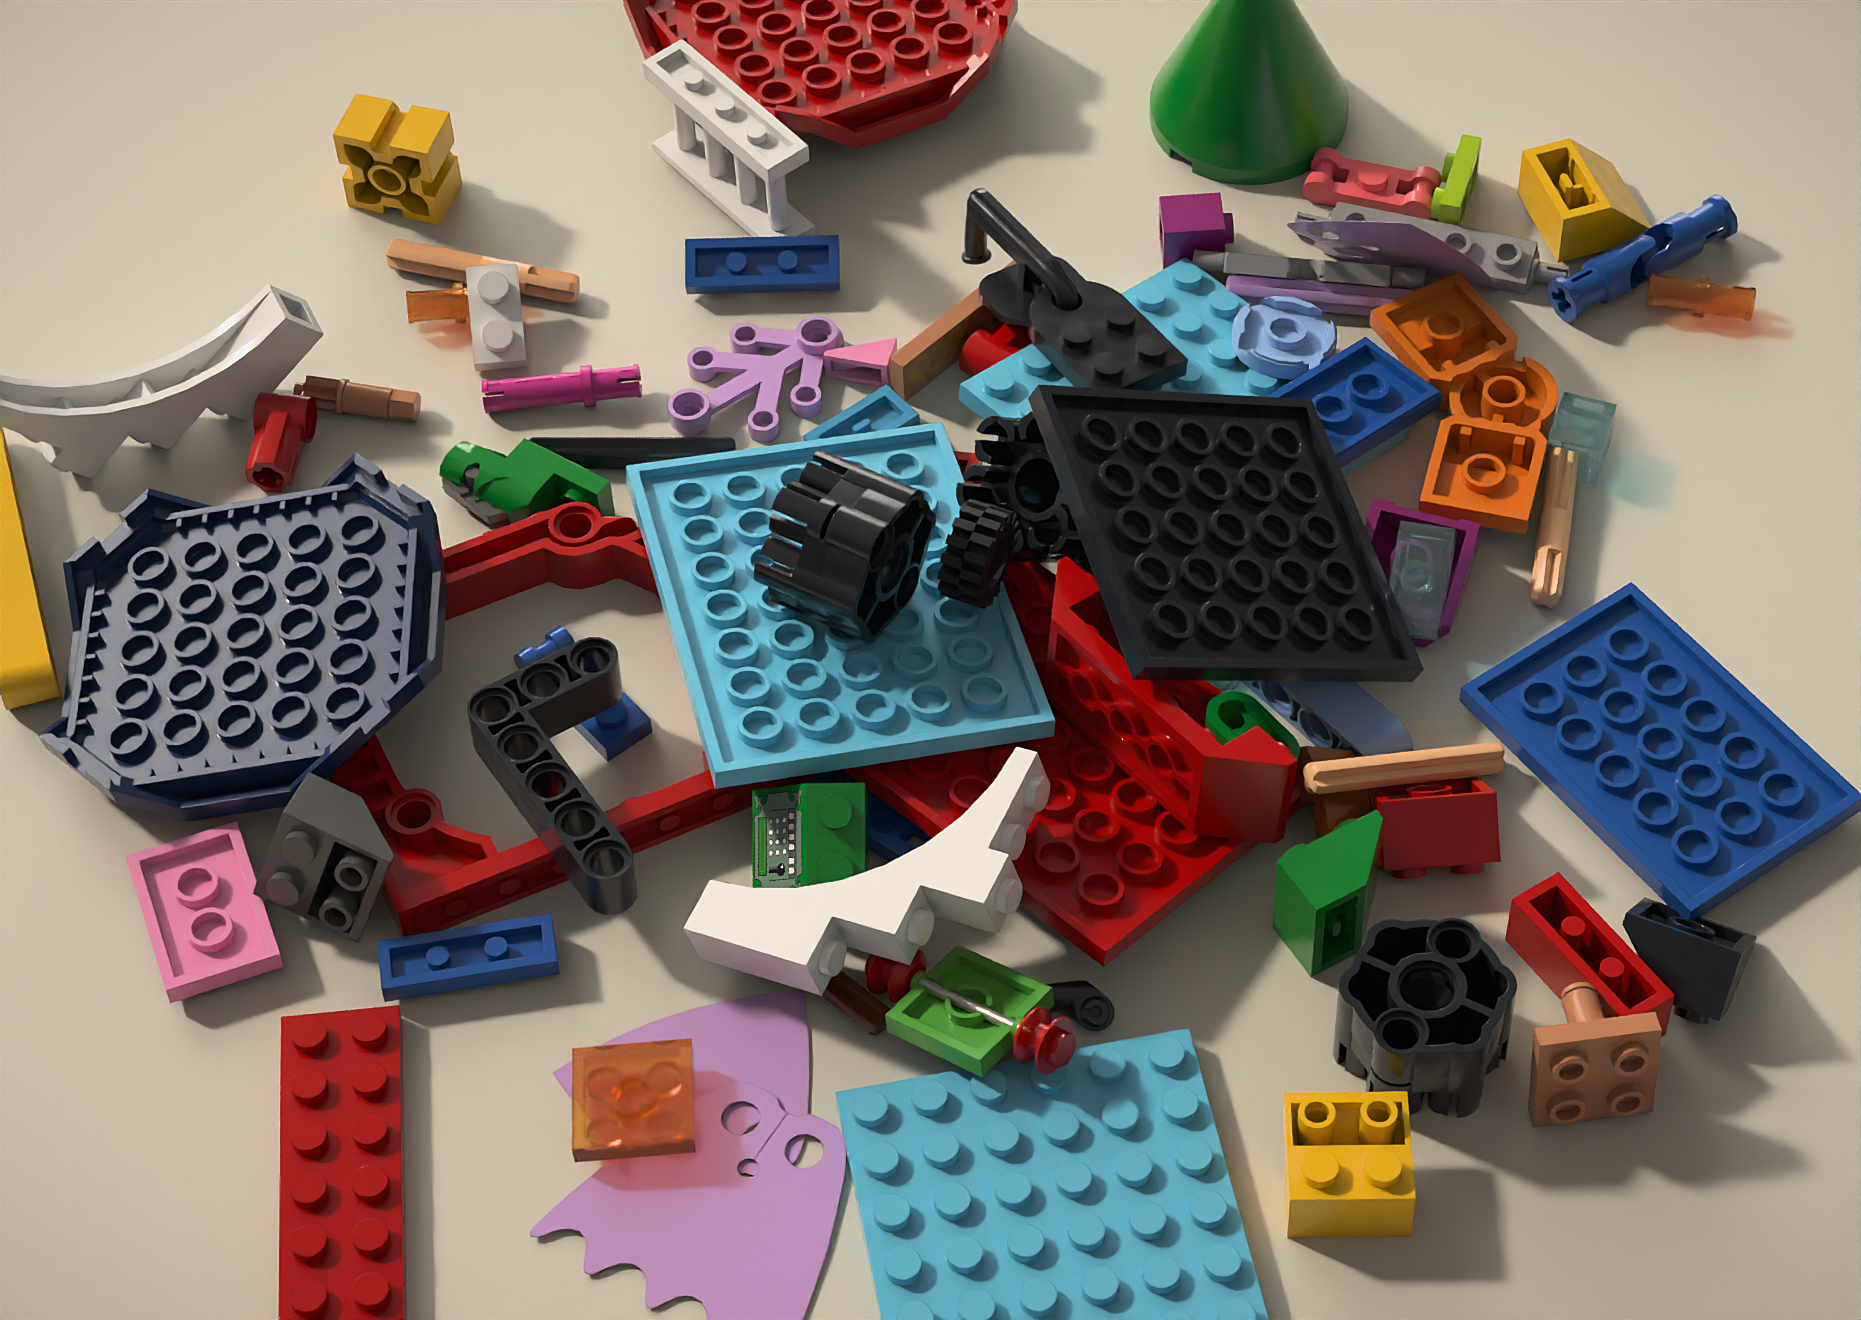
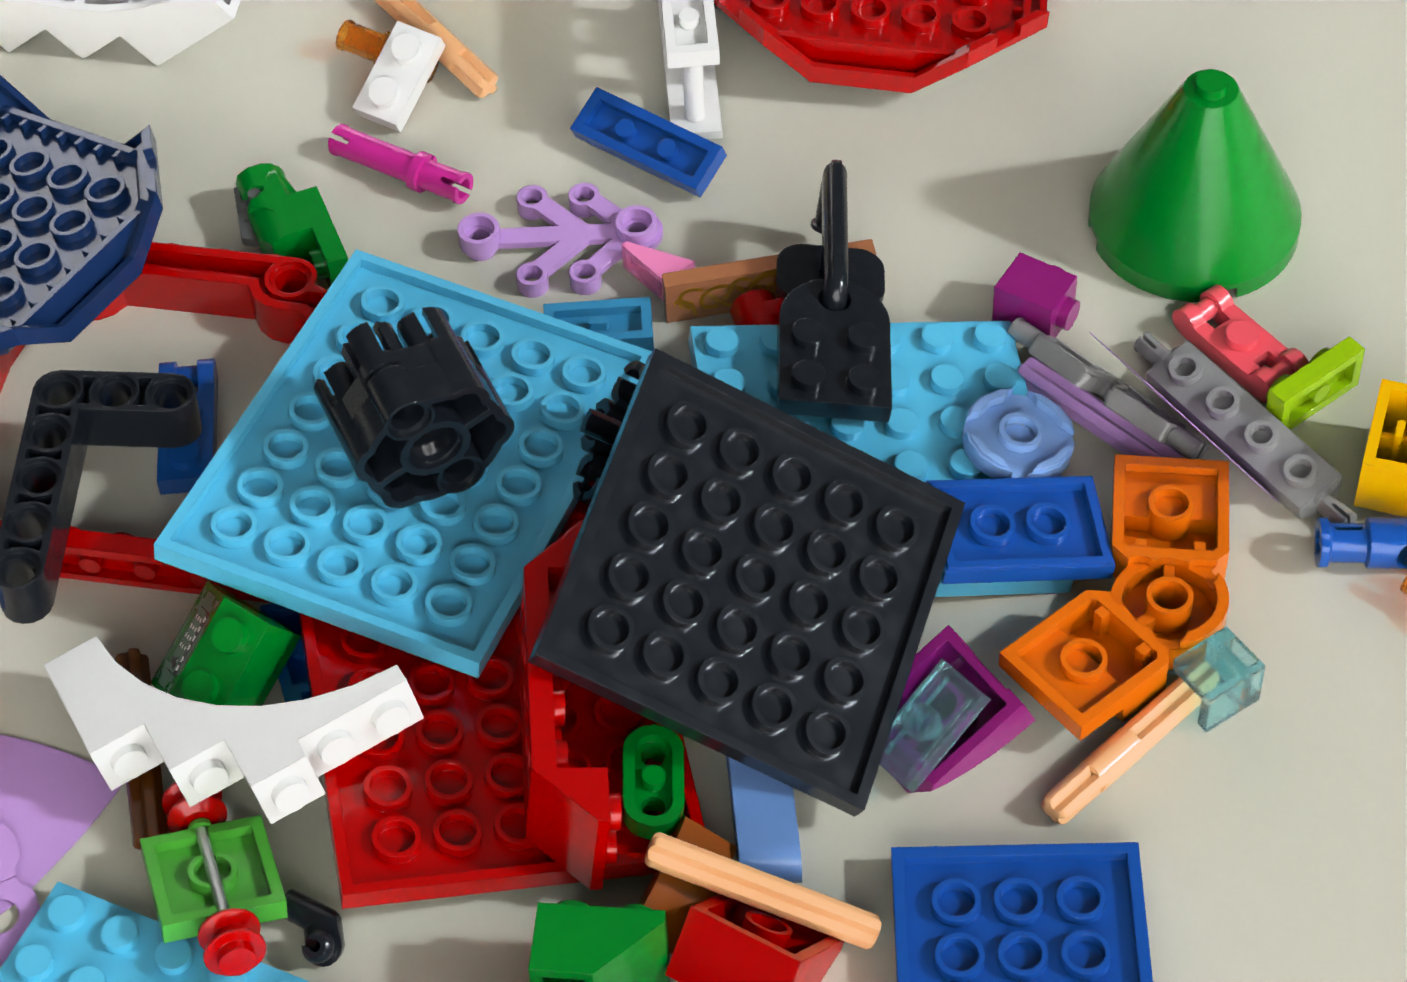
camera: 35 degrees right, 0 degrees up
(280, 430) = (164, 81): red piece -> none
(360, 399) = (239, 86): nougat piece -> none
(624, 451) = (404, 244): black axle -> none
(978, 553) = (534, 478): black tyre -> none

